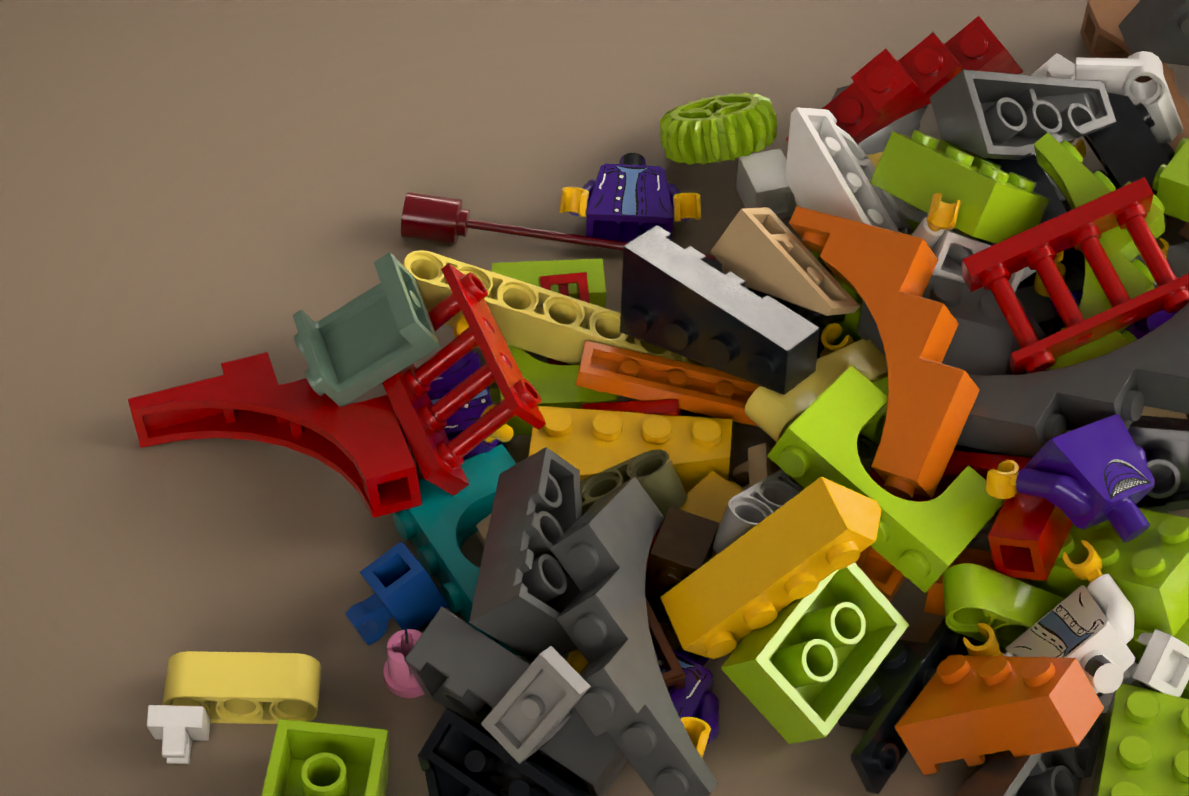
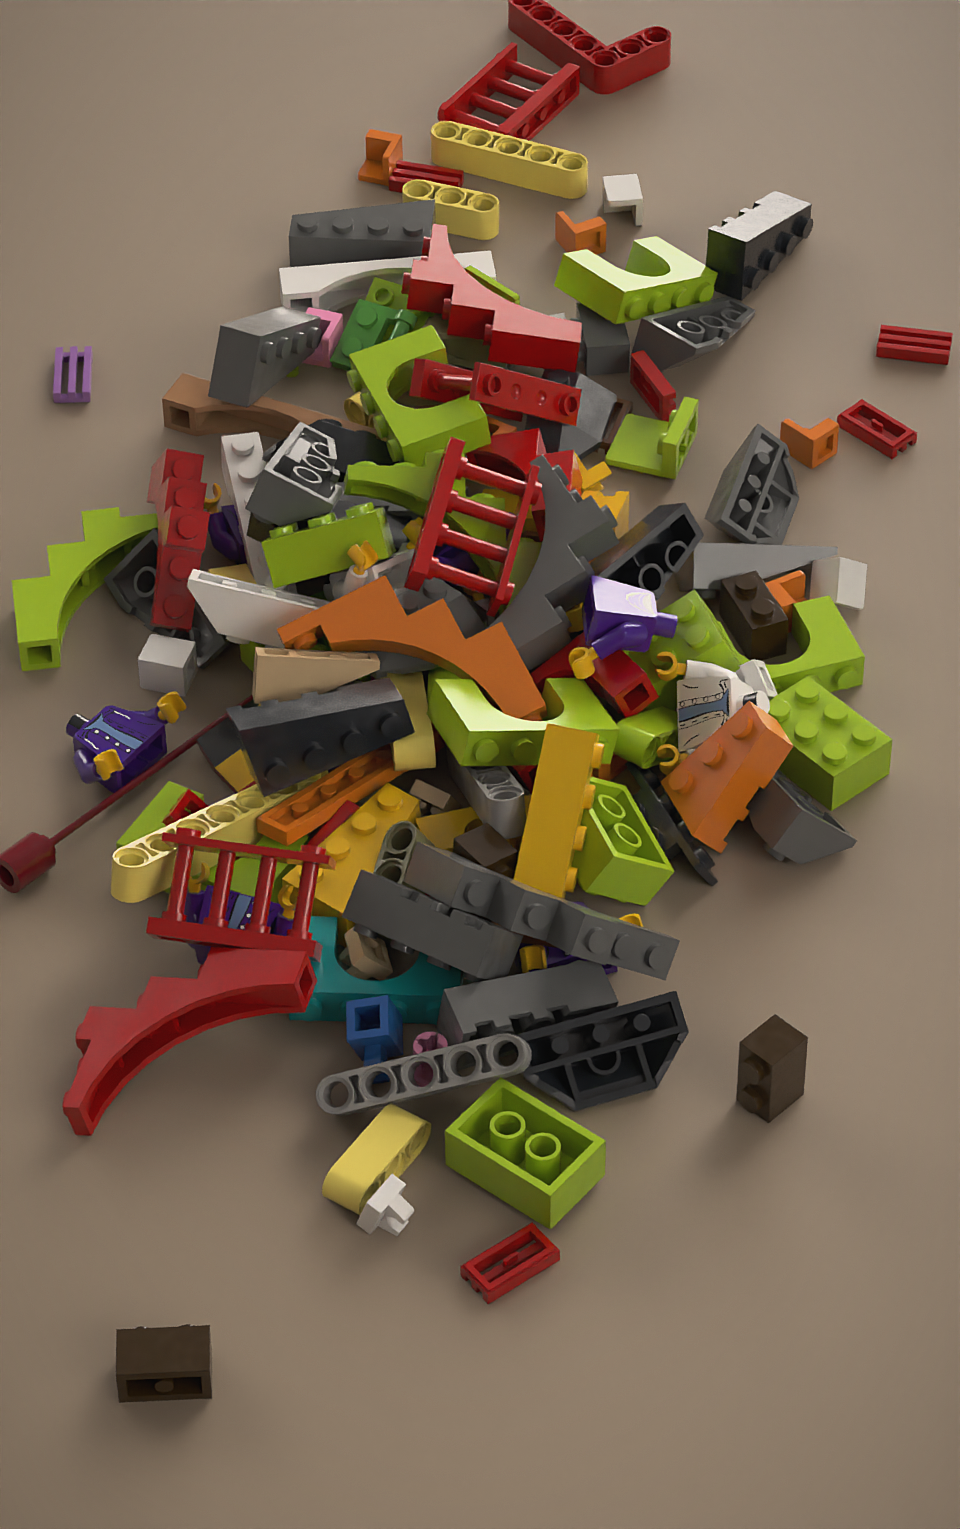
camera: 55 degrees left, 5 degrees down
(356, 664) = (402, 1072): none -> light grey beam
(367, 336) = (165, 919): sand green panel -> none
(536, 705) = (567, 981): light grey plate -> none
(718, 128) = (97, 656): lime gear -> none
(775, 70) = (76, 570): none -> lime arch
(1119, 78) = (292, 407): white piece -> none

